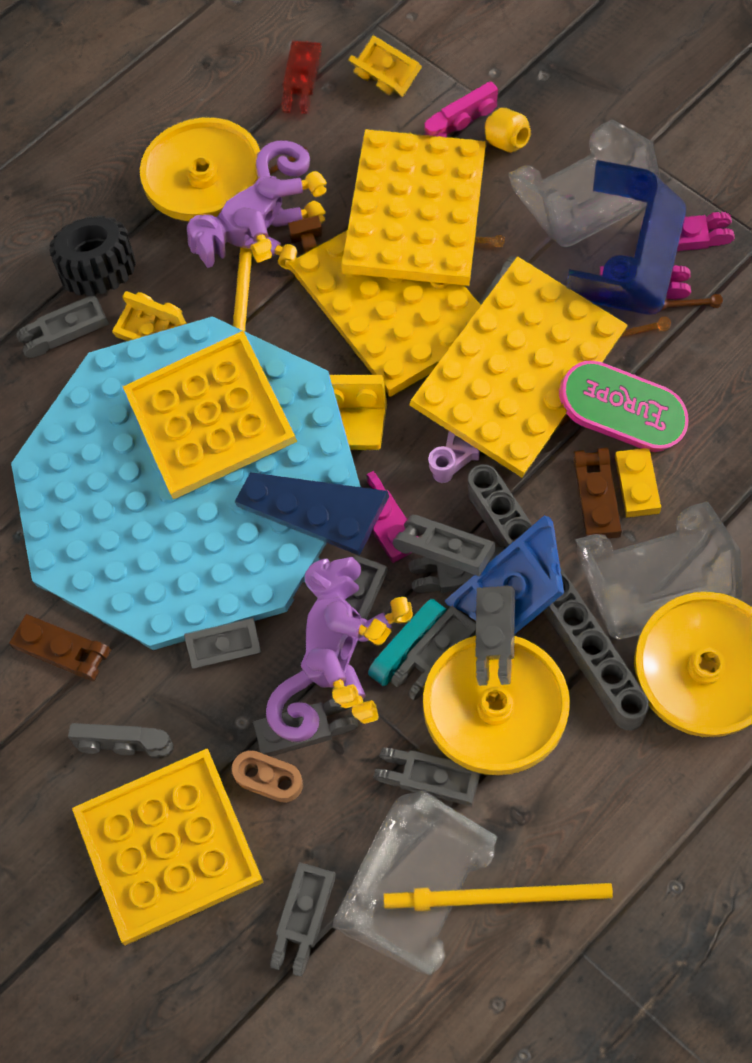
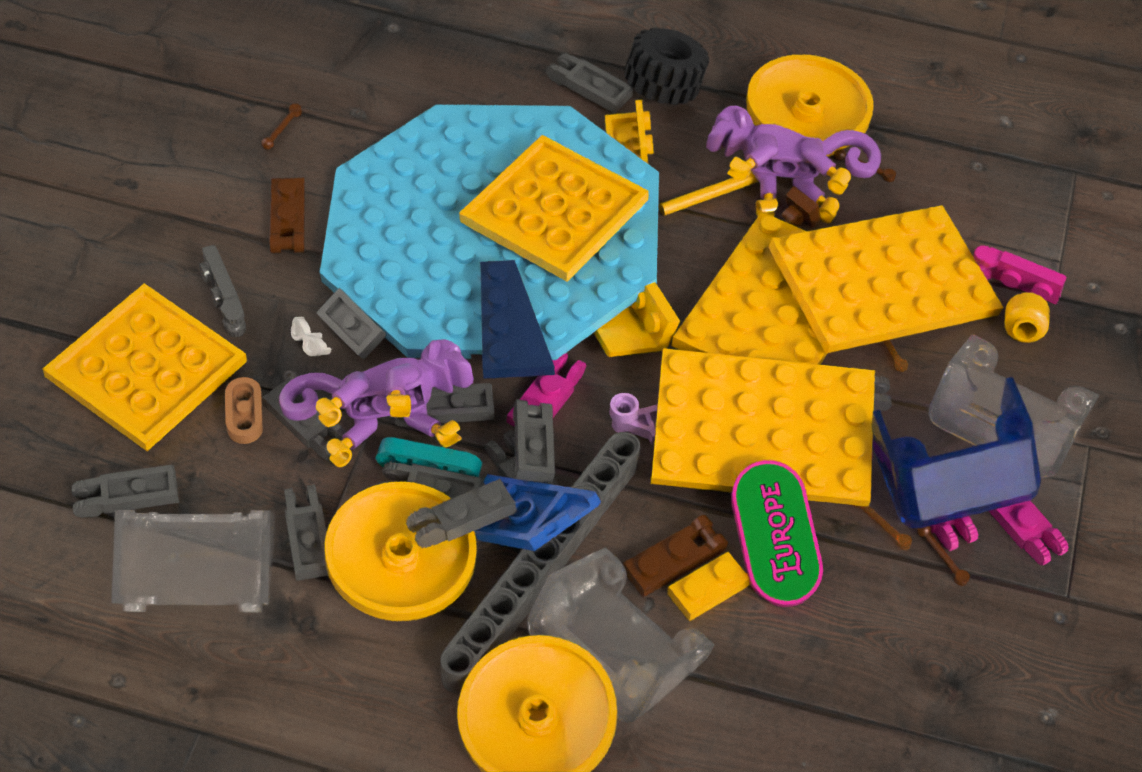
camera: 50 degrees right, 10 degrees down
(224, 687) = (312, 342): none -> white piece
(301, 74) = (968, 136): clear red hinge -> none
(387, 66) = (1025, 194): yellow bracket -> none
(423, 899) = (186, 576): yellow bar -> none

